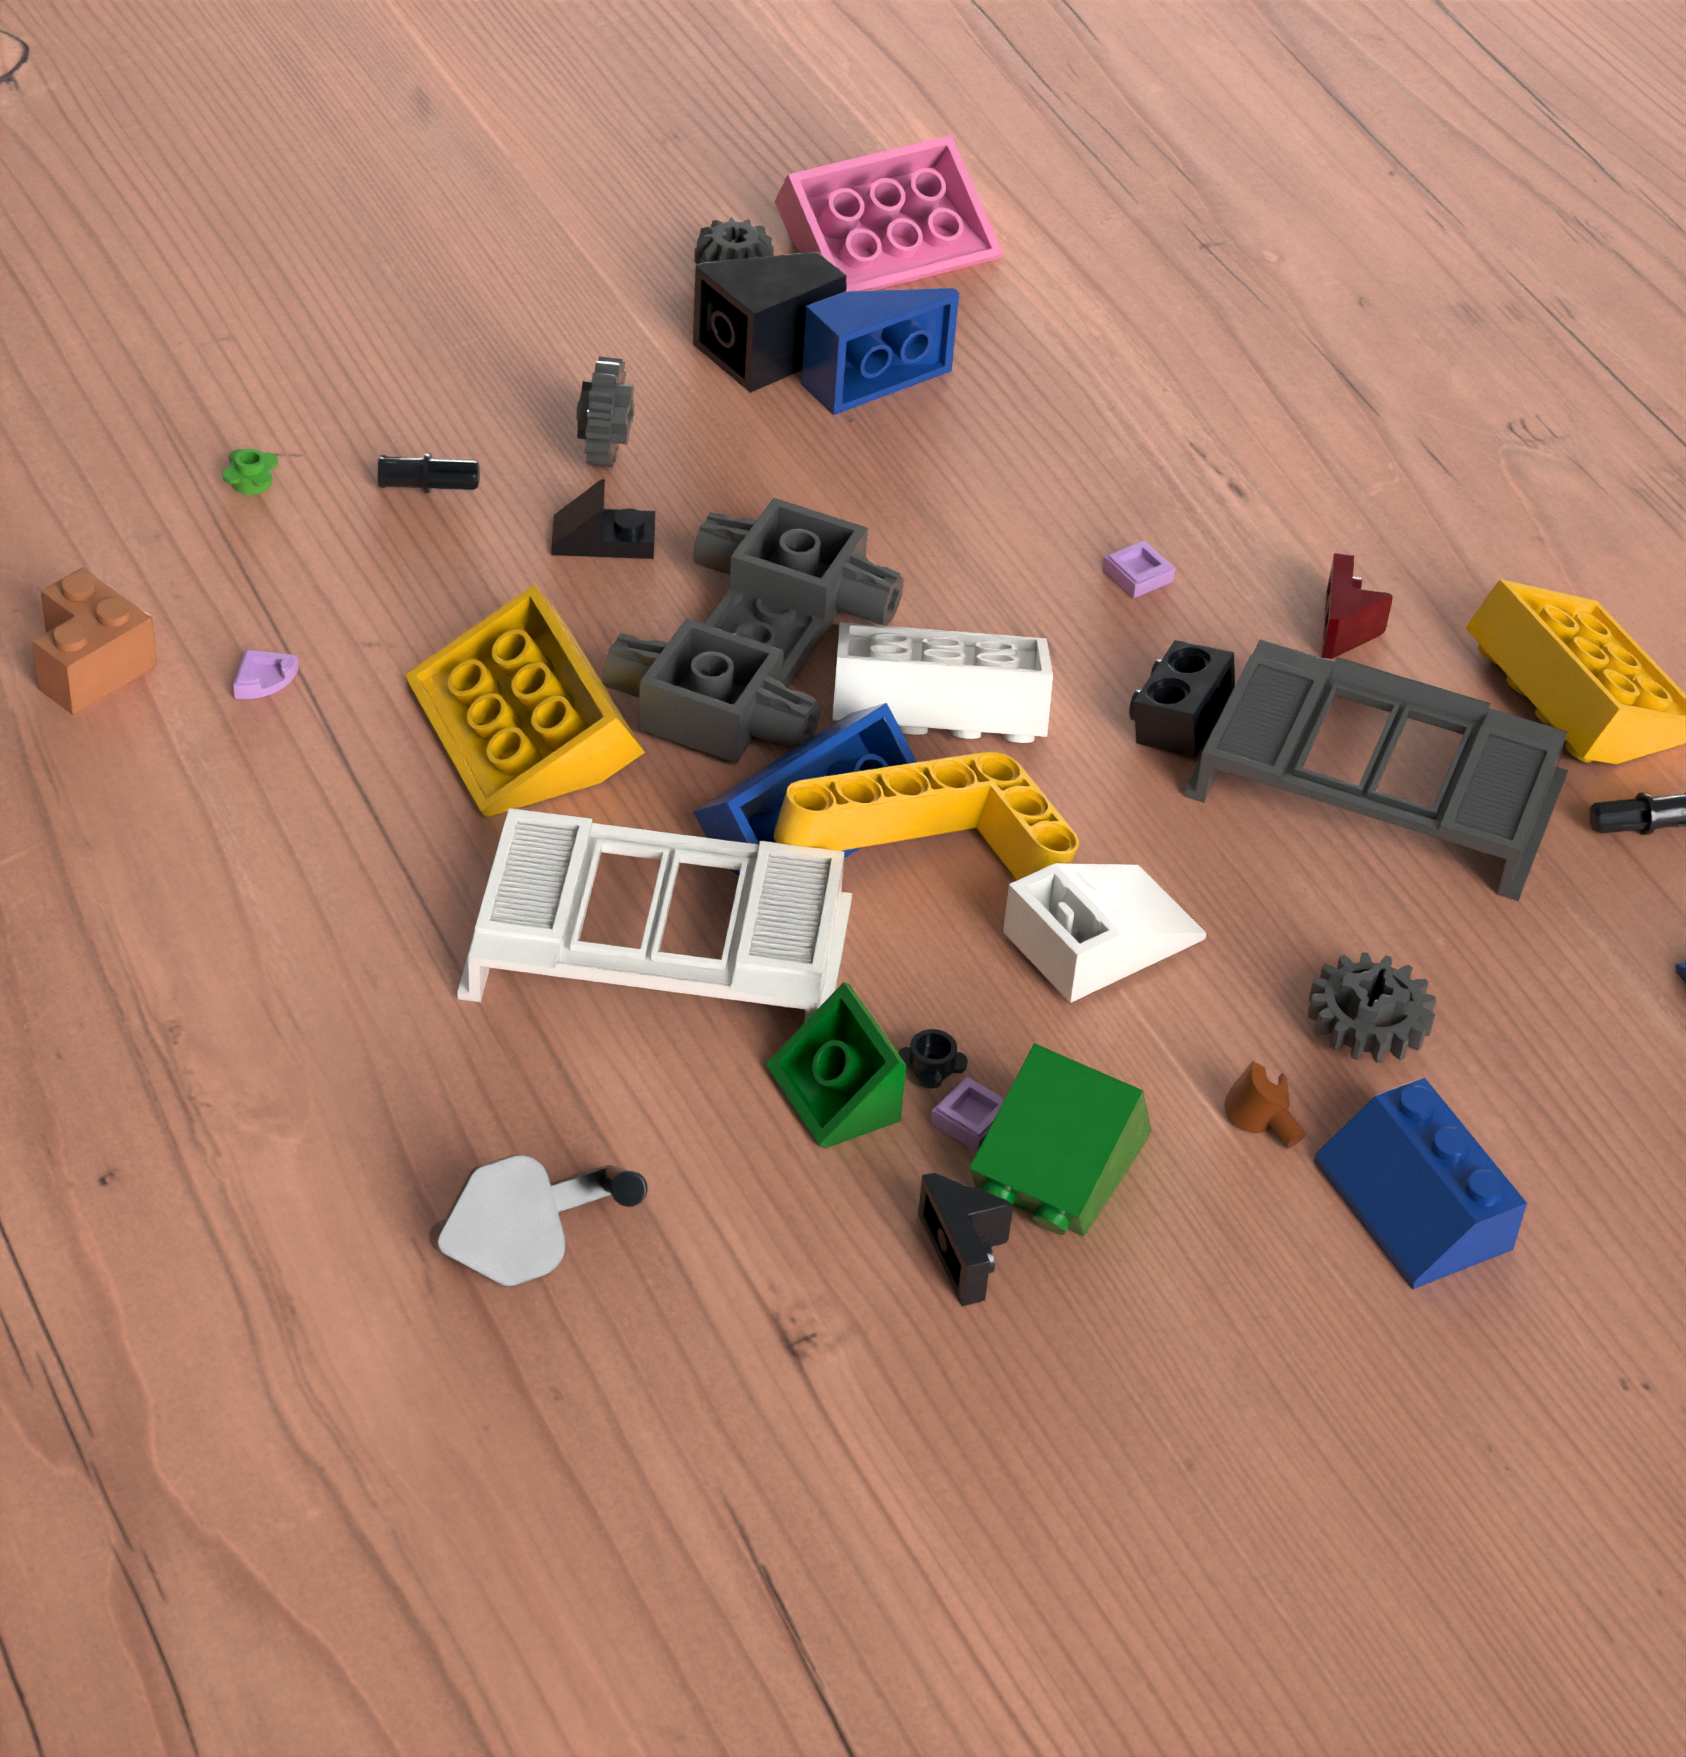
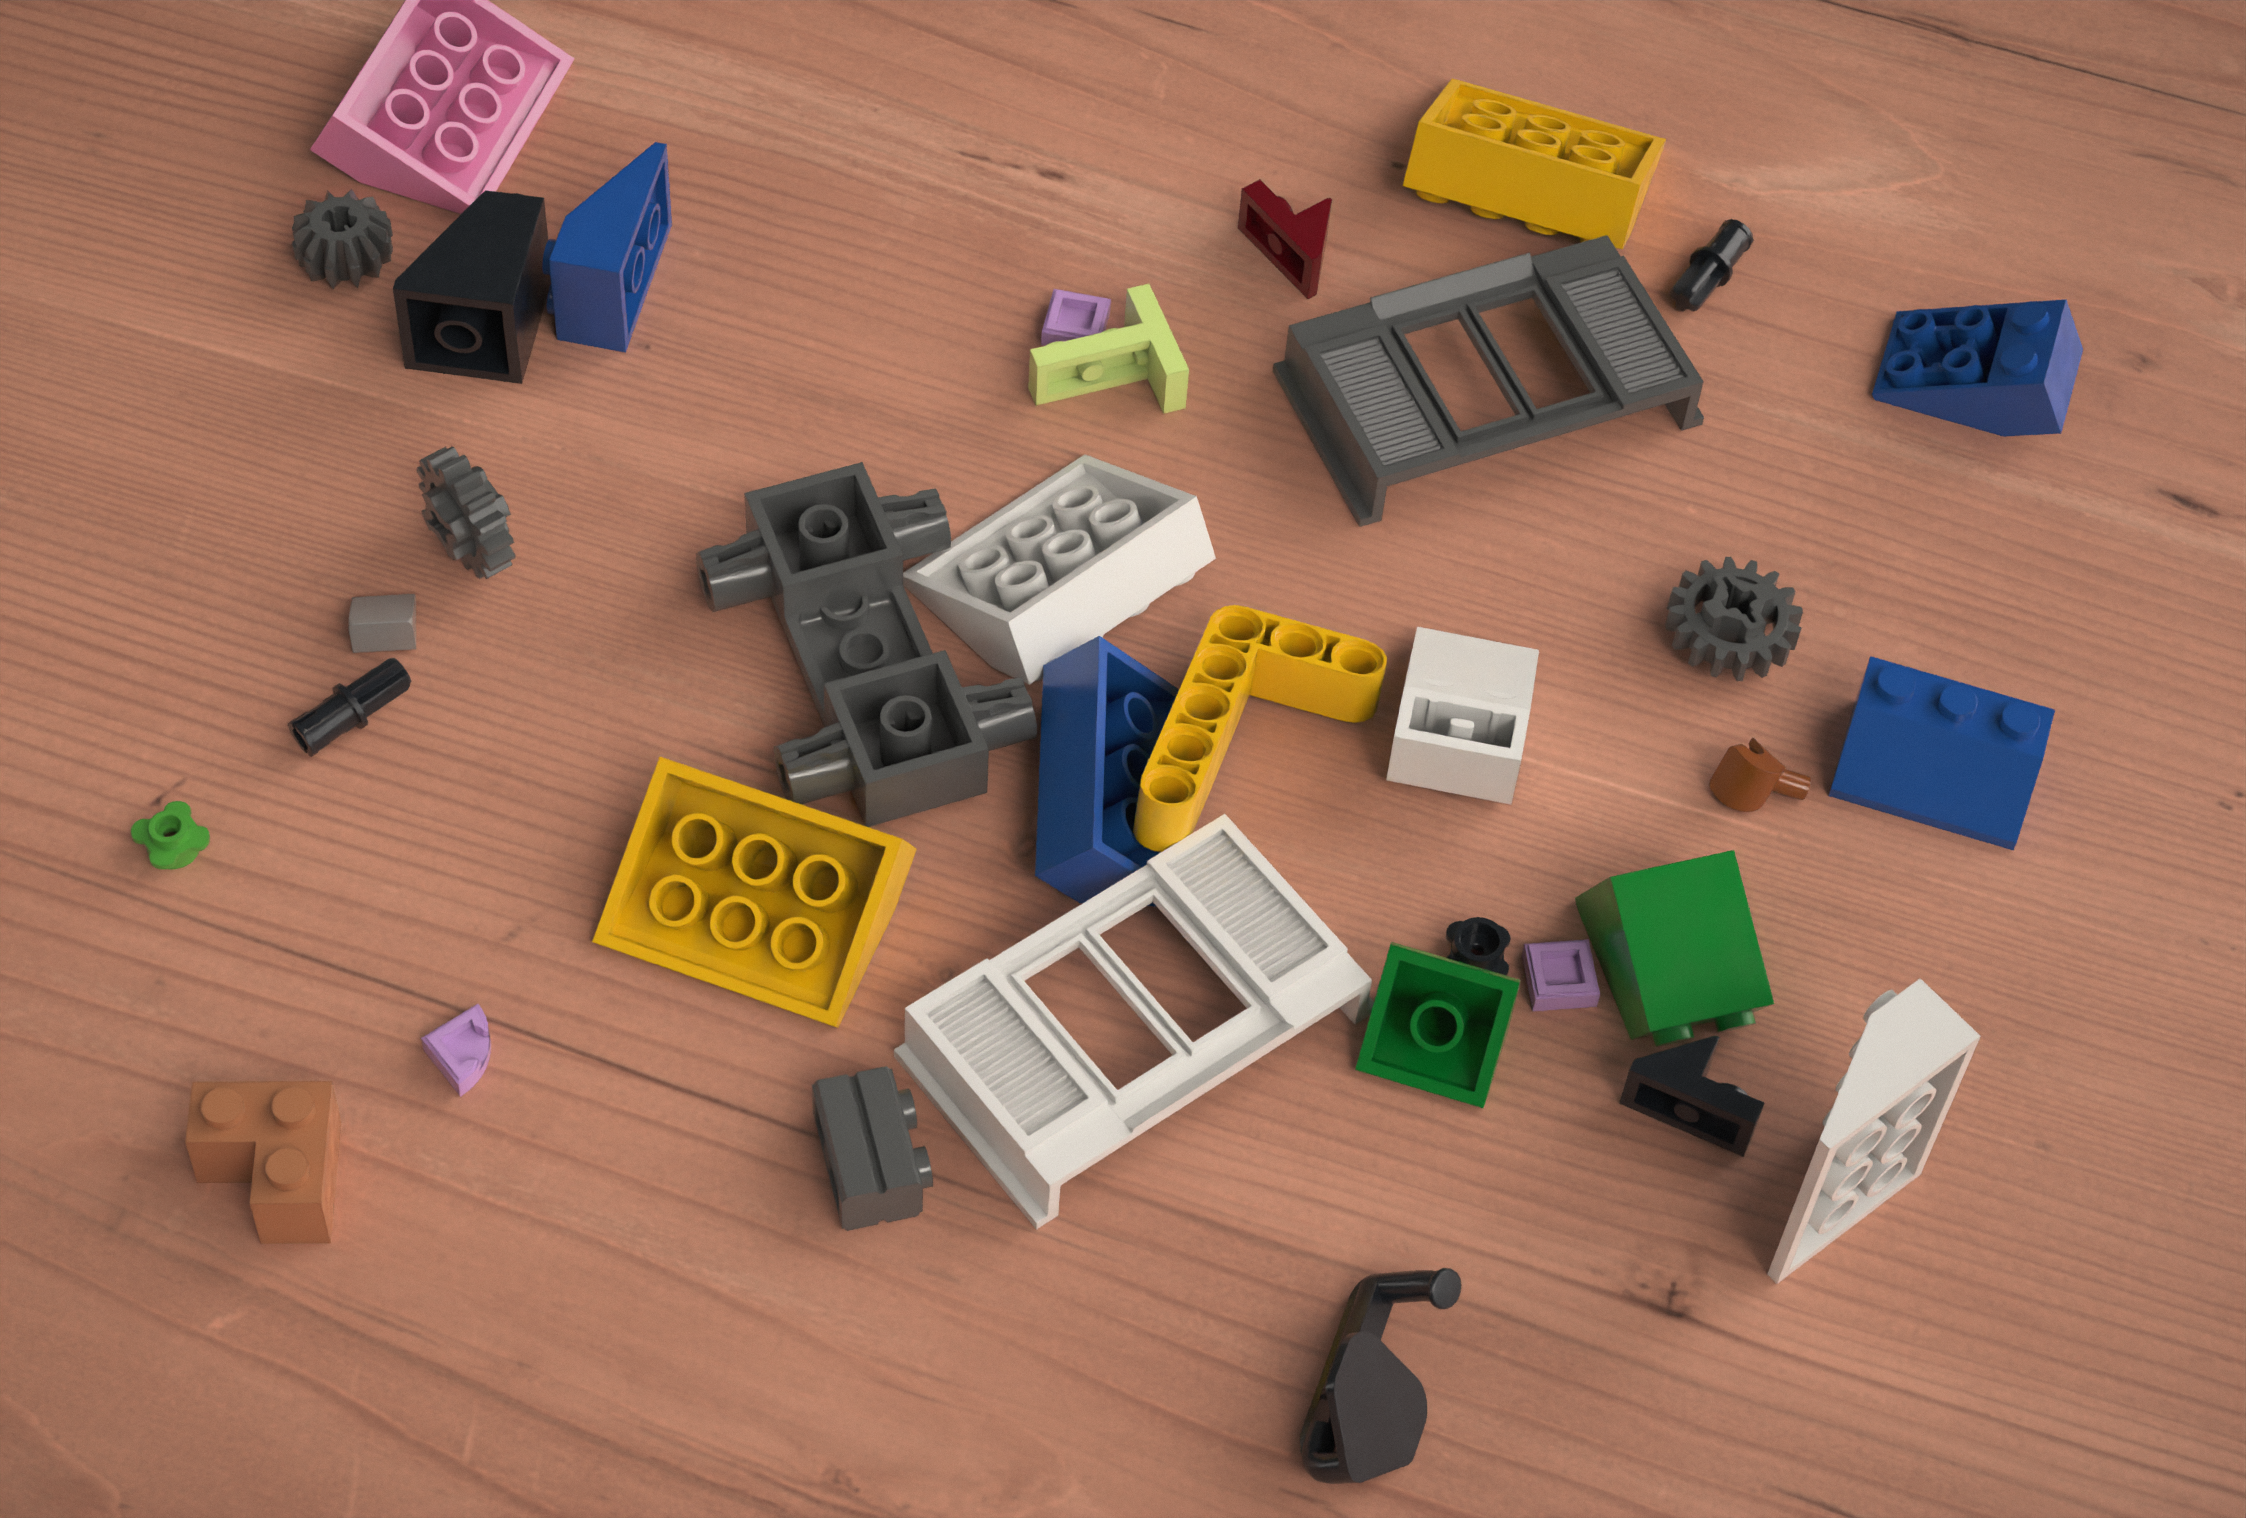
camera: 45 degrees left, 10 degrees up
(407, 875) = (869, 1147): none -> dark grey brick
(502, 449) = (383, 623): none -> light grey slope
(593, 531) = (581, 640): black slope -> none
(998, 1296) = (1881, 1120): none -> white slope
(1128, 595) = (1115, 358): none -> yellowish green bracket
(1183, 697) = (1275, 429): black brick -> none

